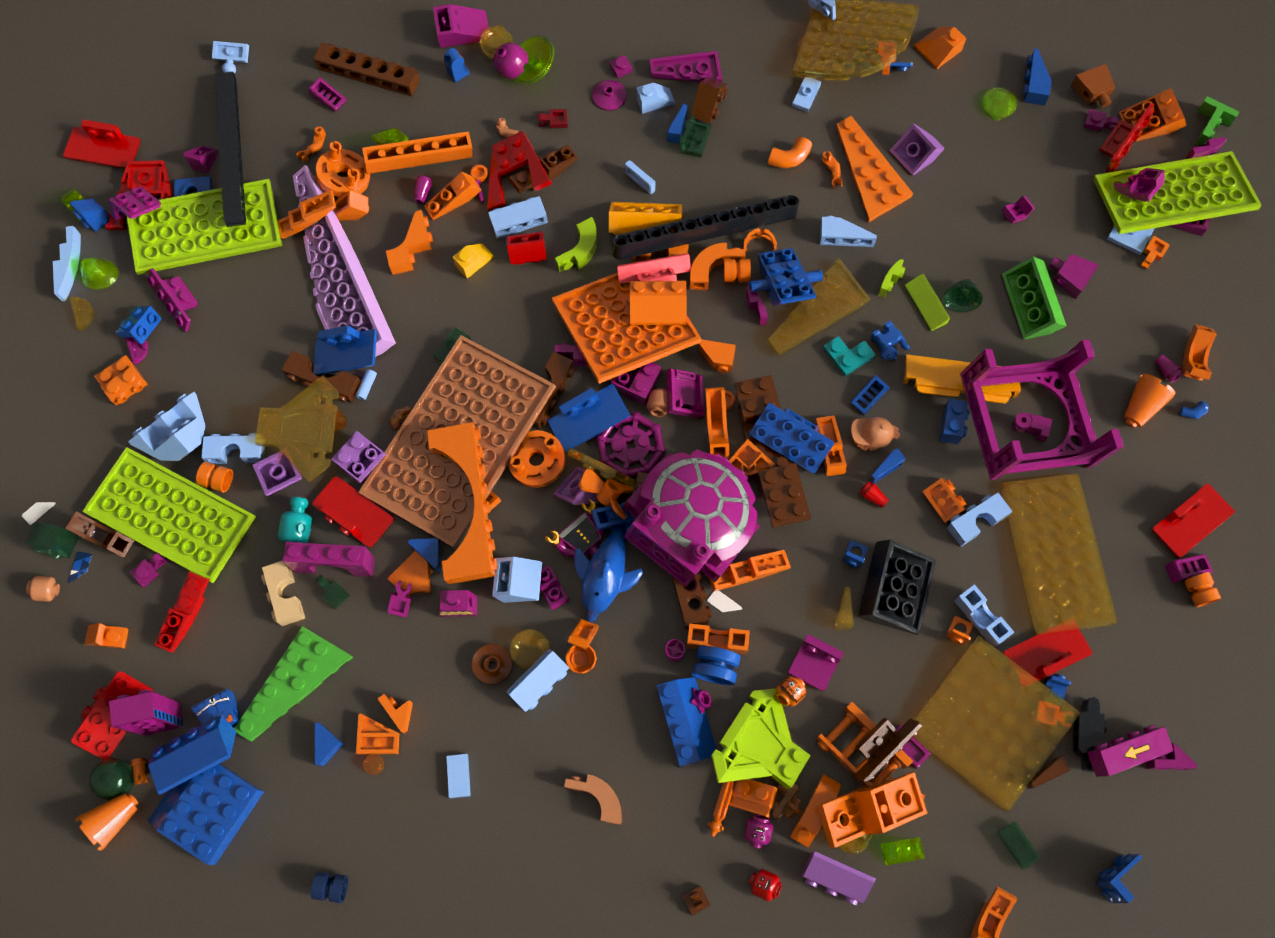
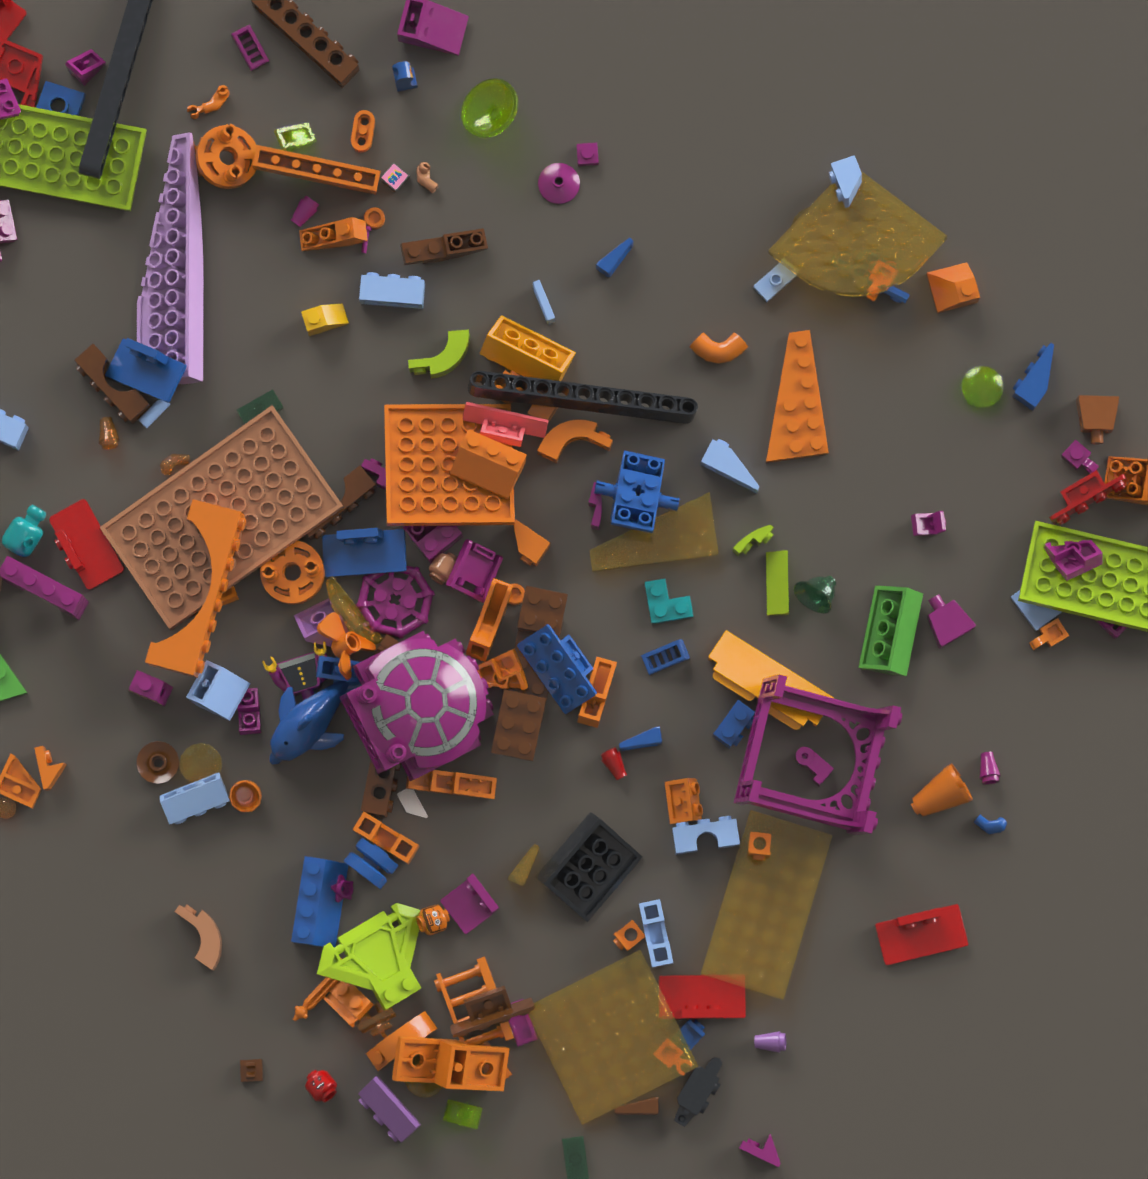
camera: 25 degrees right, 10 degrees up
(276, 473) = (28, 471): medium lavender slope -> none
(302, 428) = (71, 436): clear yellow plate -> none
(307, 214) = (168, 193): orange slope -> none
(333, 593) = (34, 620): clear green plate -> none
(351, 206) = (219, 199): orange slope -> none
(358, 457) = (114, 491): medium lavender slope -> none
(399, 602) = (95, 659): magenta plate -> none
(415, 571) = (118, 638): orange slope -> none
(416, 241) = (274, 270): orange arch -> none
(429, 549) = (145, 621): blue slope -> none
(441, 118) = (363, 131): none -> orange plate
(458, 776) = (80, 855): light blue tile -> none
(481, 139) = (395, 177): none -> tile
(493, 38) = (462, 64): clear yellow dish -> none
(509, 156) = (412, 214): red wing -> none
(510, 60) = (466, 97): magenta cylinder -> none
(526, 248) = (384, 333): red brick -> none
(556, 118) = (486, 189): dark red plate -> none
(583, 633) = (258, 773): orange plate -> none
(653, 97) = (605, 211): light blue slope -> none
(672, 648) = (337, 829): magenta wheel -> none
(687, 67) = (663, 191): magenta wing -> none
(695, 137) = (625, 280): clear green bracket -> none
(708, 96) = (660, 242): reddish brown brick -> none
(737, 270) = (594, 458): orange wheel -> none
(758, 831) = (338, 1035): magenta head -> none
(760, 234) = (637, 424): orange helmet -> none
(834, 166) = (761, 382): orange arm -> none
(853, 560) = (557, 818): blue bracket -> none
(873, 433) = (645, 699): nougat hair -> none
(889, 338) = (714, 606): blue animal -> none
(916, 149) = (858, 403): medium lavender slope -> none
(1034, 511) = (759, 855): none -> orange bracket
(1126, 663) = (771, 1041): none -> medium lavender cone
(1130, 751) = (723, 1123): magenta brick -> none
(1177, 573) = (872, 977): magenta slope -> none
(1197, 352) = (1026, 767): orange arch -> none
(1202, 589) = (886, 1006): orange wheel -> none

